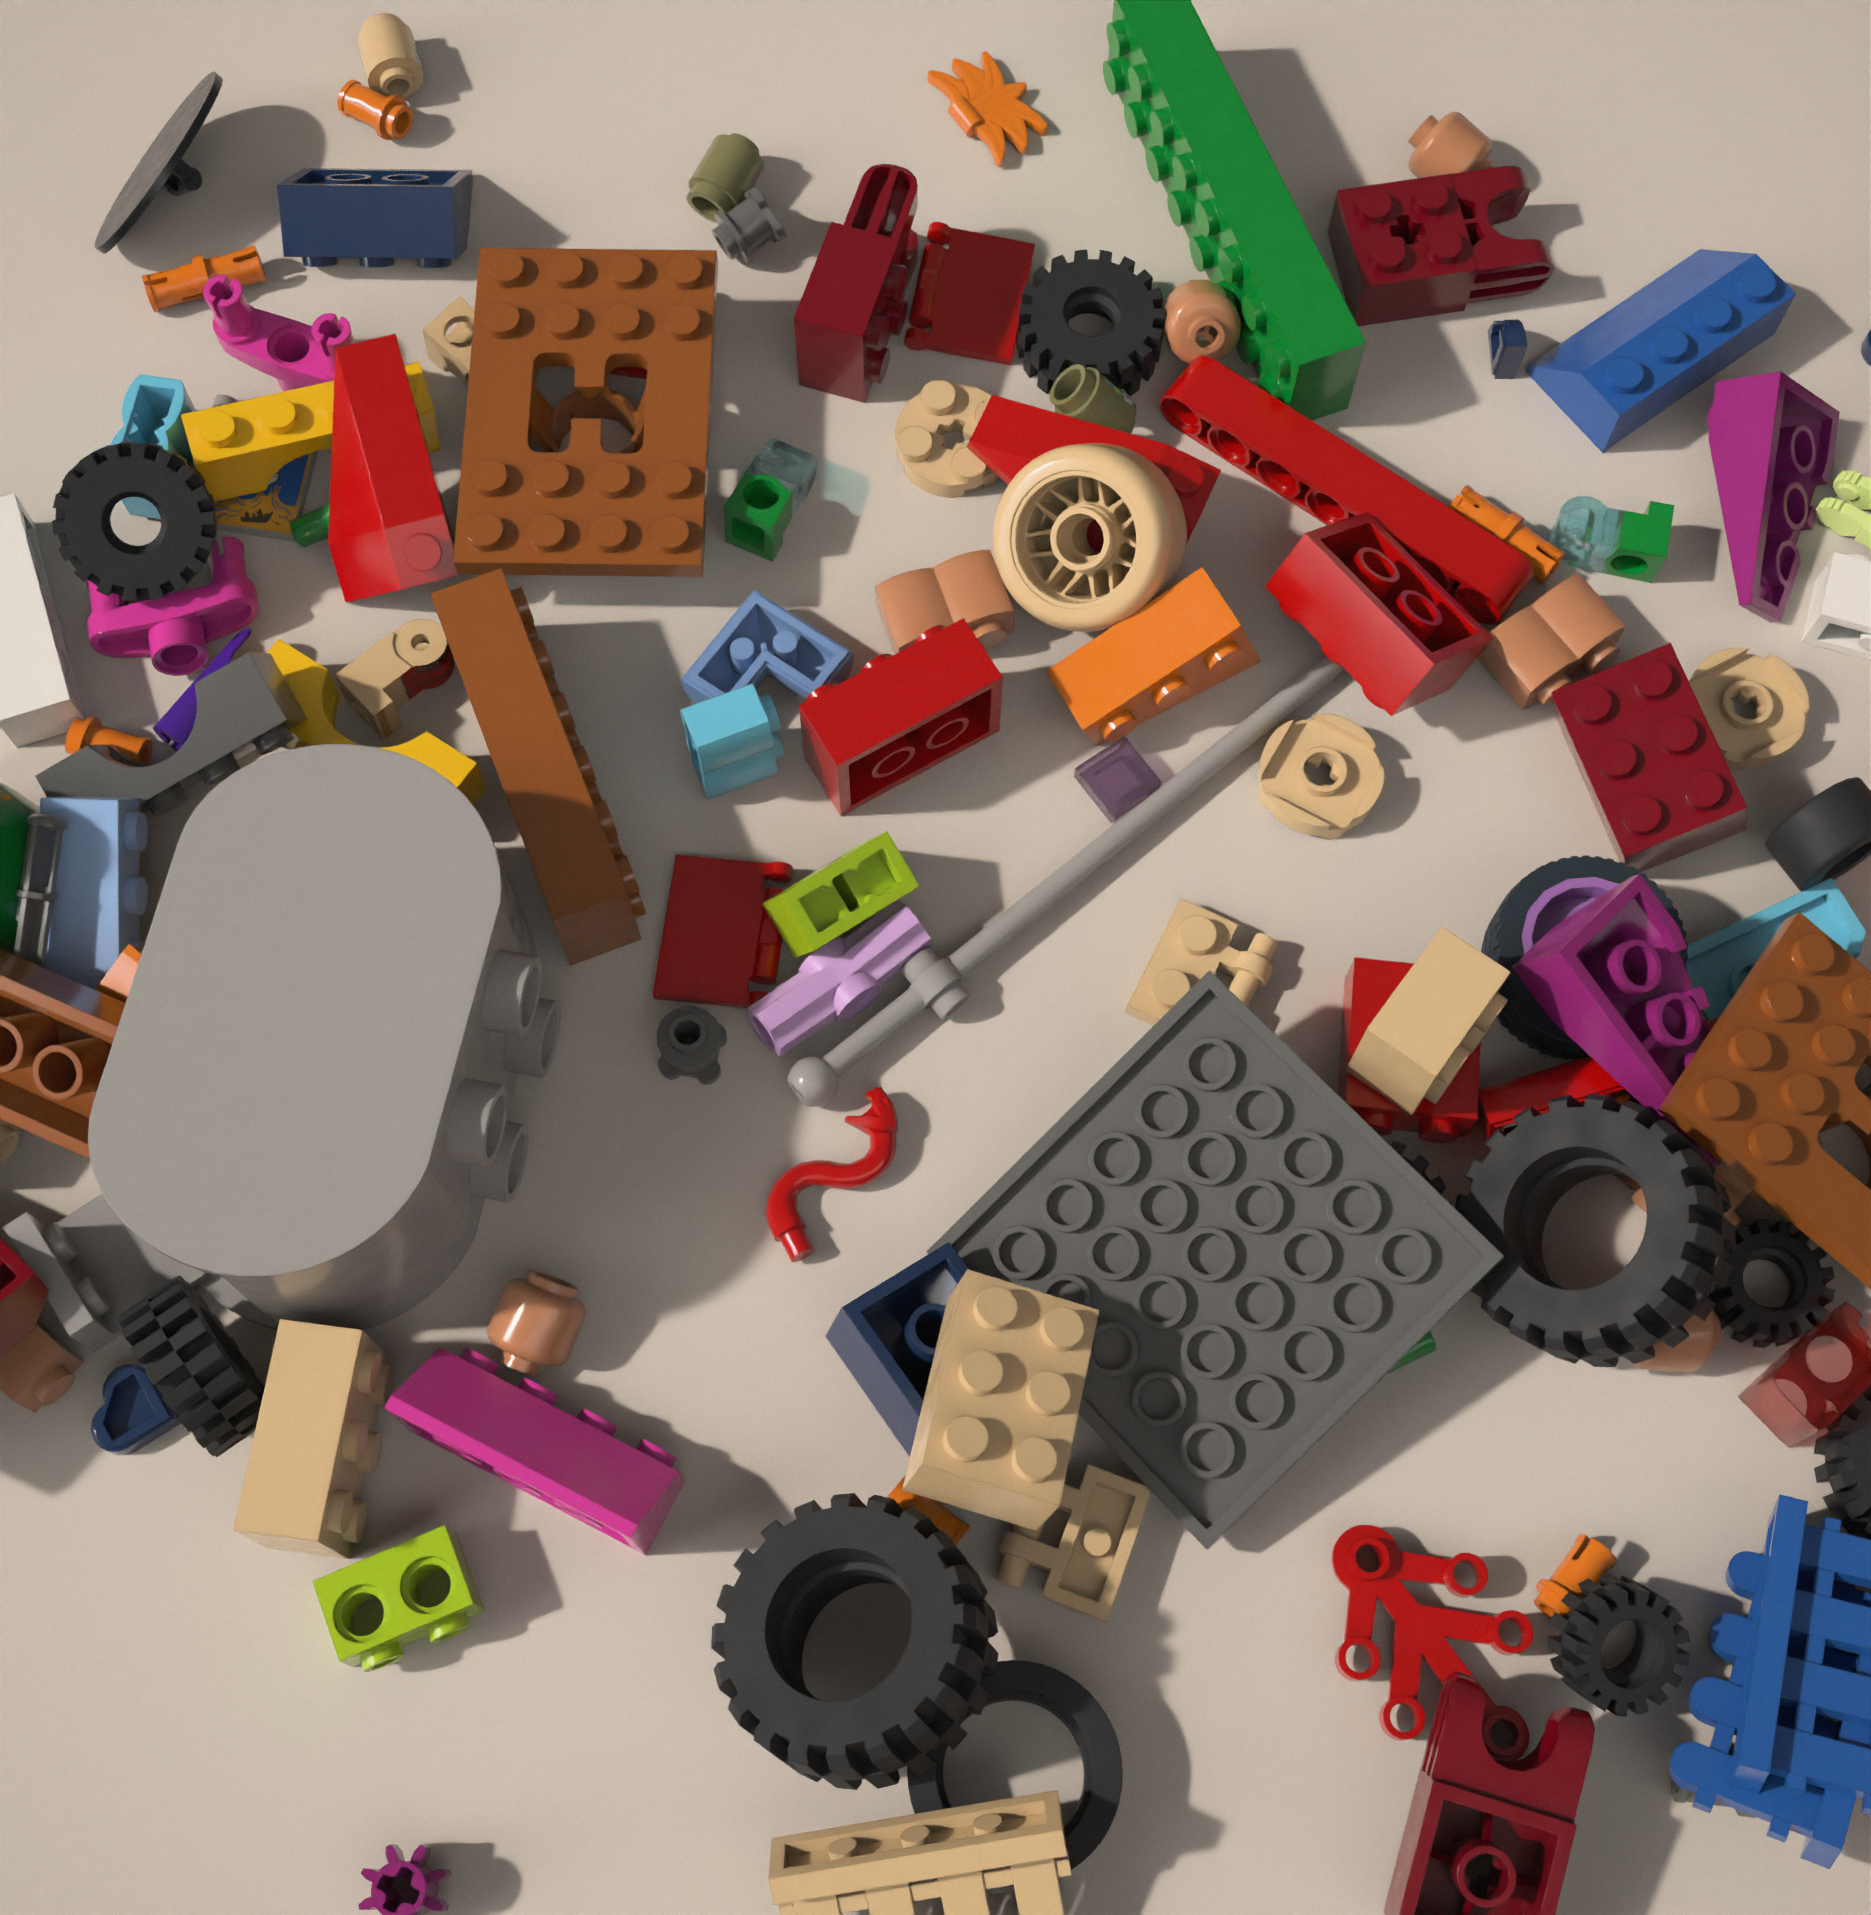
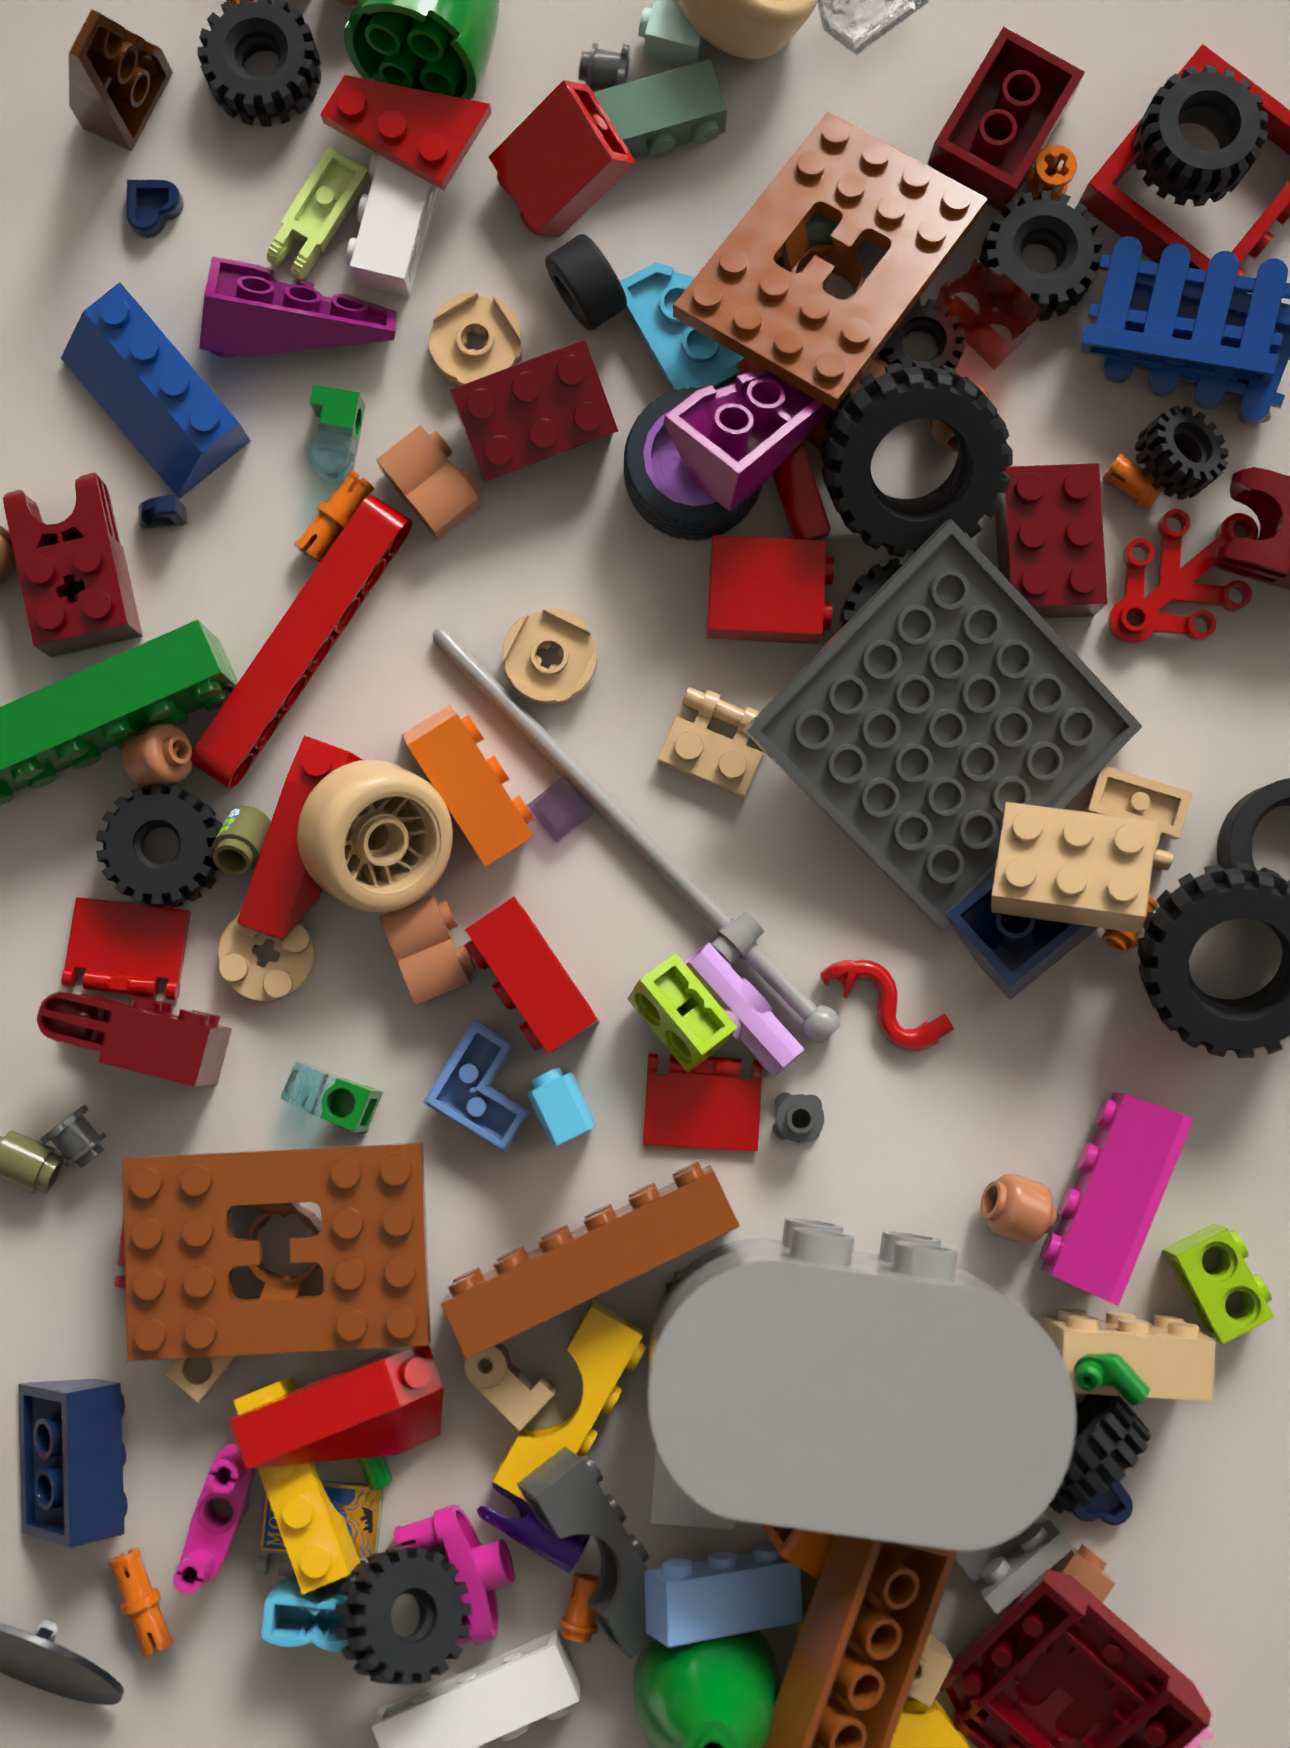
camera: 95 degrees left, 15 degrees up
(38, 886) = (739, 1635): dark grey piece -> none
(297, 1382) = (1110, 1370): none -> green arm
(1377, 613) = (424, 610): red brick -> none
(1430, 1023) = (776, 570): tan brick -> none
(1482, 1440) = (1054, 538): none -> dark red brick

